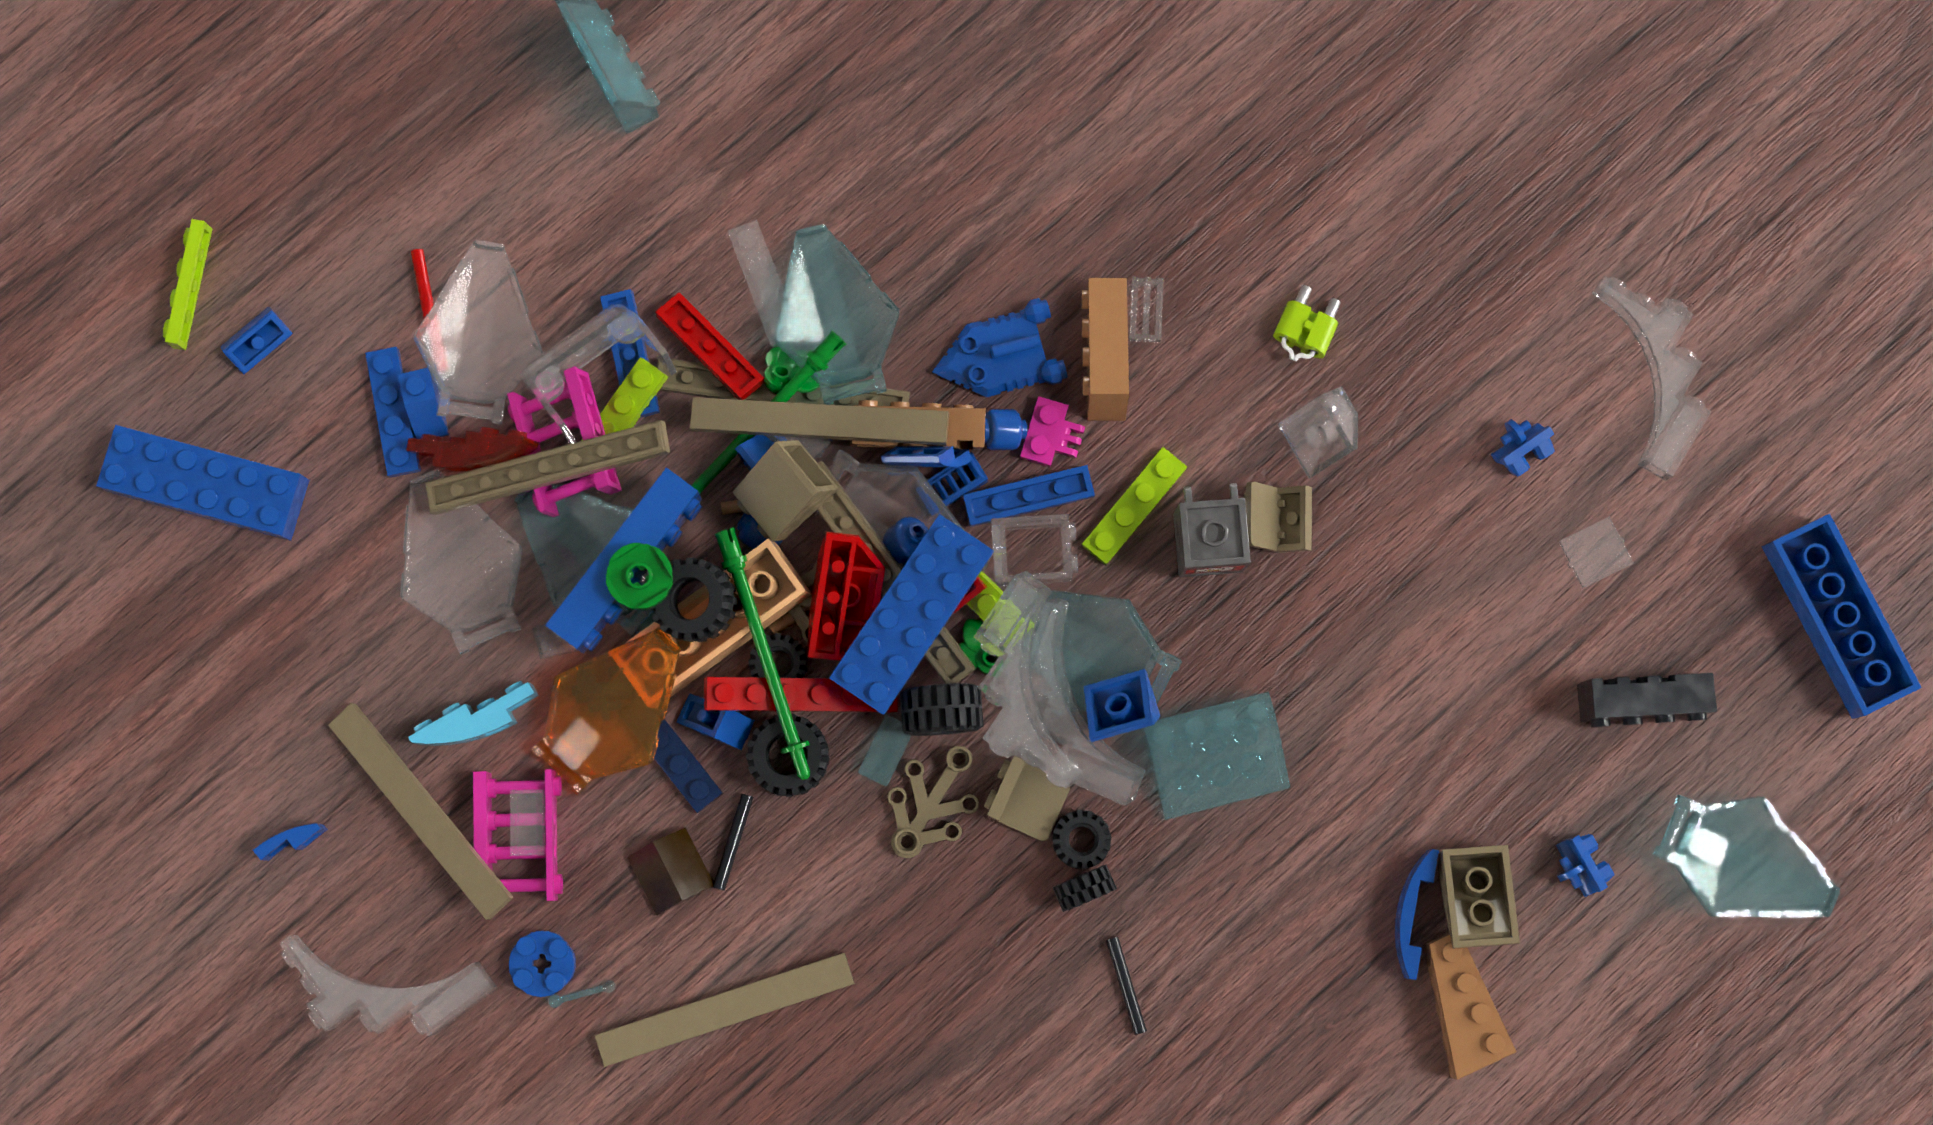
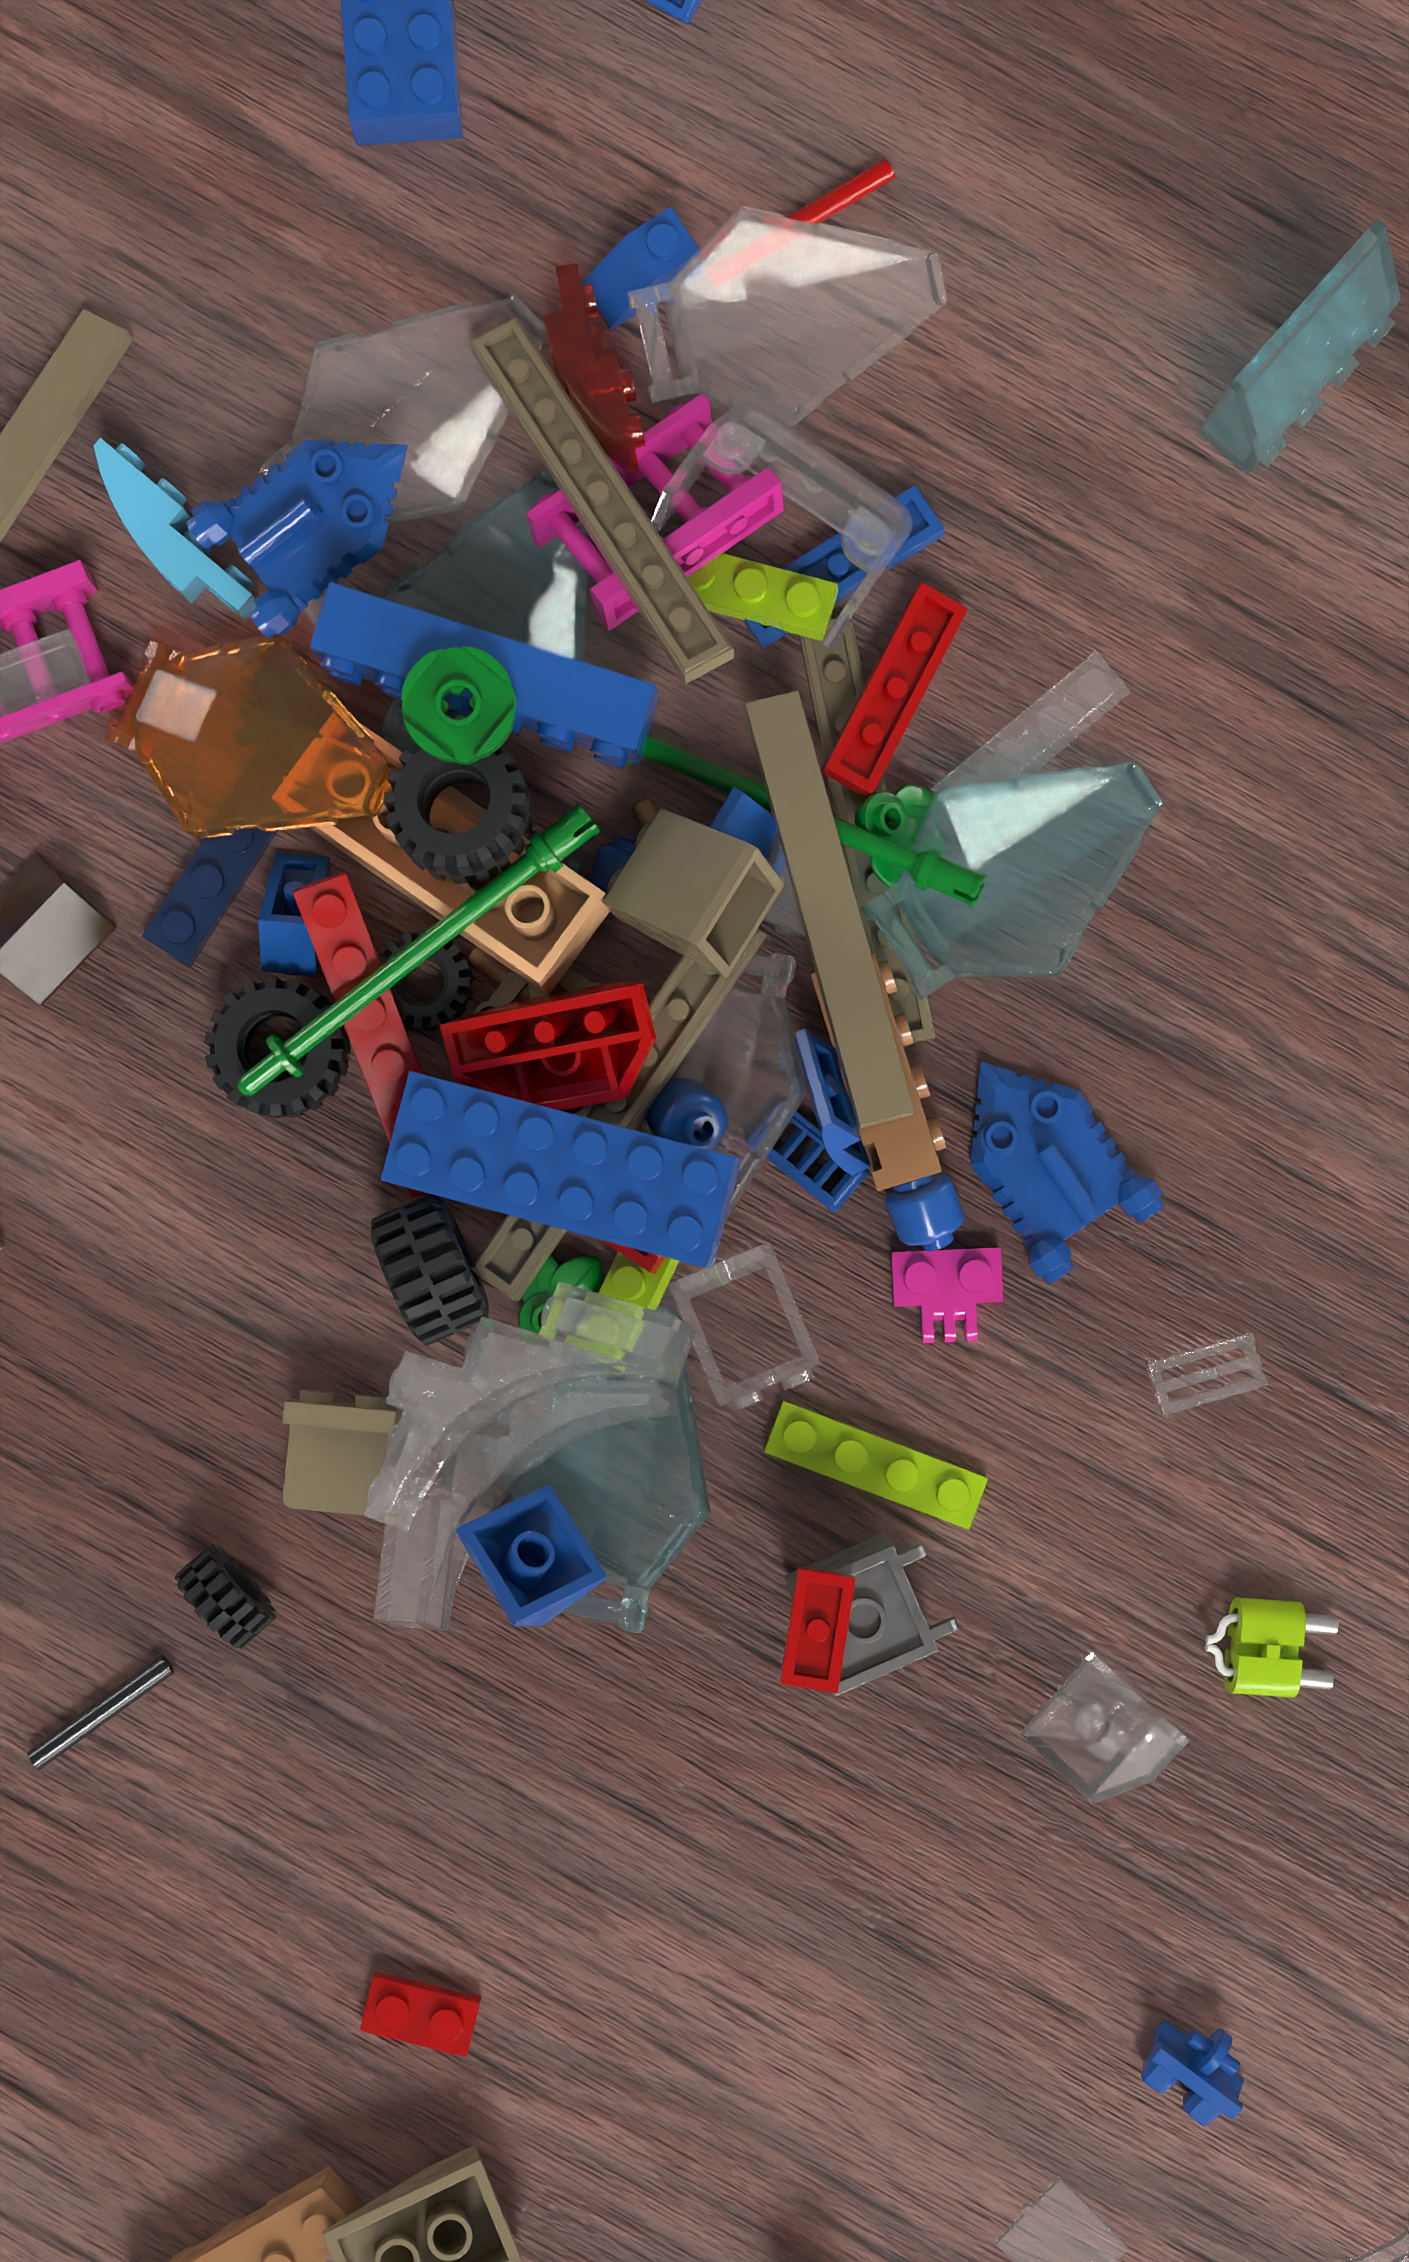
camera: 70 degrees right, 5 degrees up
(391, 413) = (592, 234): blue plate -> none
(500, 635) = (306, 522): none -> blue shield
(733, 842) = (117, 1009): black bar -> none
(885, 751) = (339, 1200): clear light blue tile -> none
(929, 807) = (276, 1301): dark tan plant -> none
(1029, 495) = (832, 1288): blue plate -> none
(1101, 834) = (274, 1574): black tyre -> none
(1106, 349) = (1117, 1333): medium nougat wedge -> none
(1210, 557) = (817, 1629): none -> red plate
(1216, 755) = (516, 1736): clear light blue slope -> none
(1279, 517) = (936, 1710): dark tan bracket -> none
(1354, 862) = (420, 2014): none -> red plate
(1410, 955) = (441, 2133): blue slope -> none

